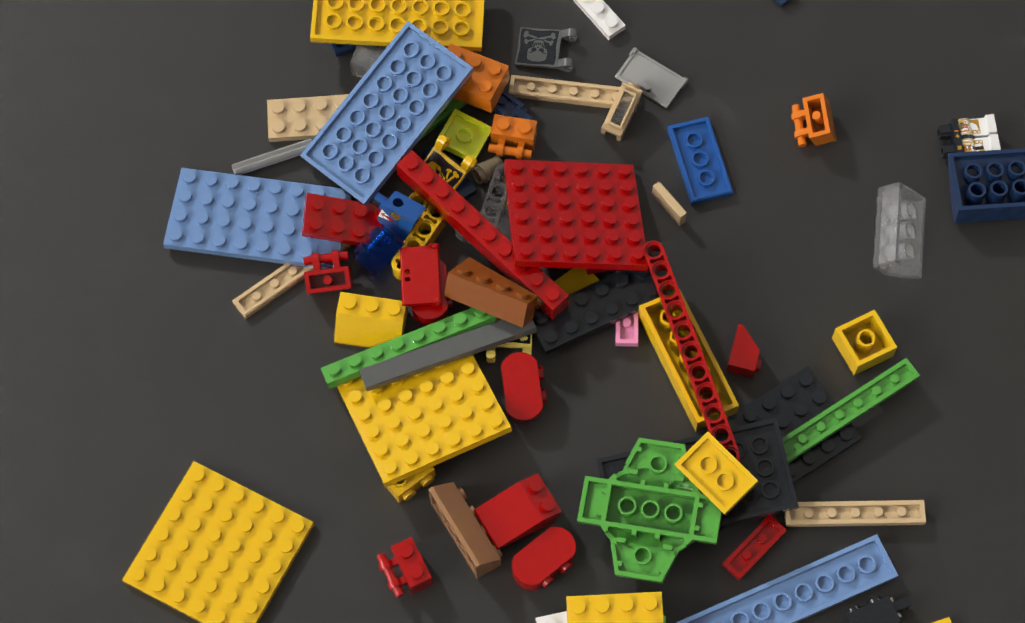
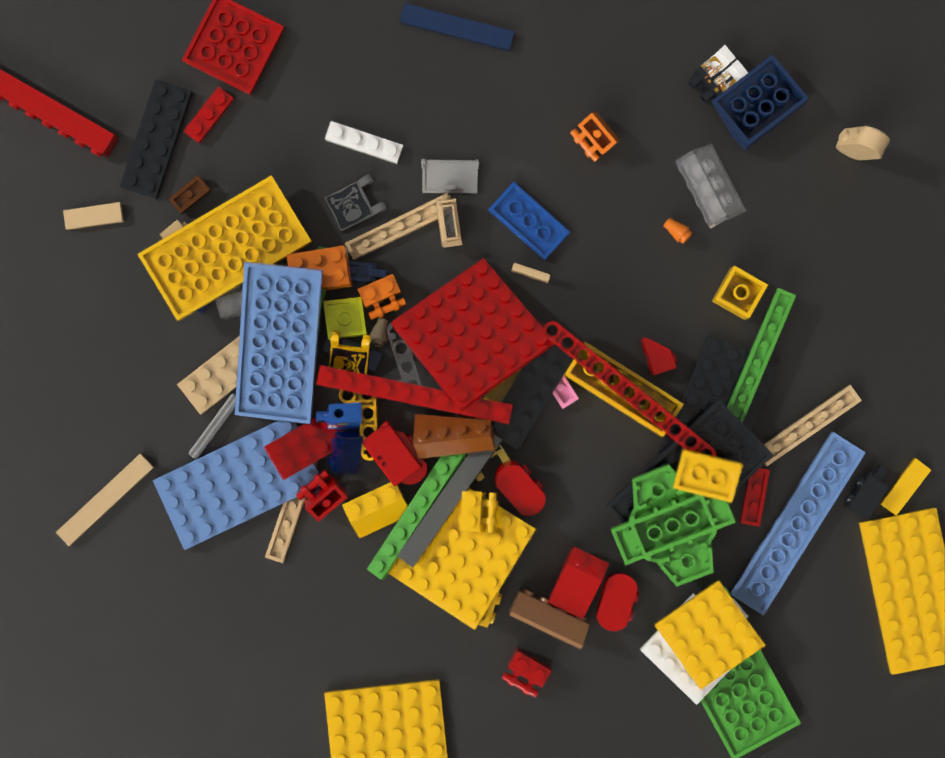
camera: 30 degrees left, 20 degrees up
(125, 158) = (105, 499): none -> tan tile
(465, 373) = (473, 512): none -> yellow brick
(841, 255) = (679, 231): none -> orange cone

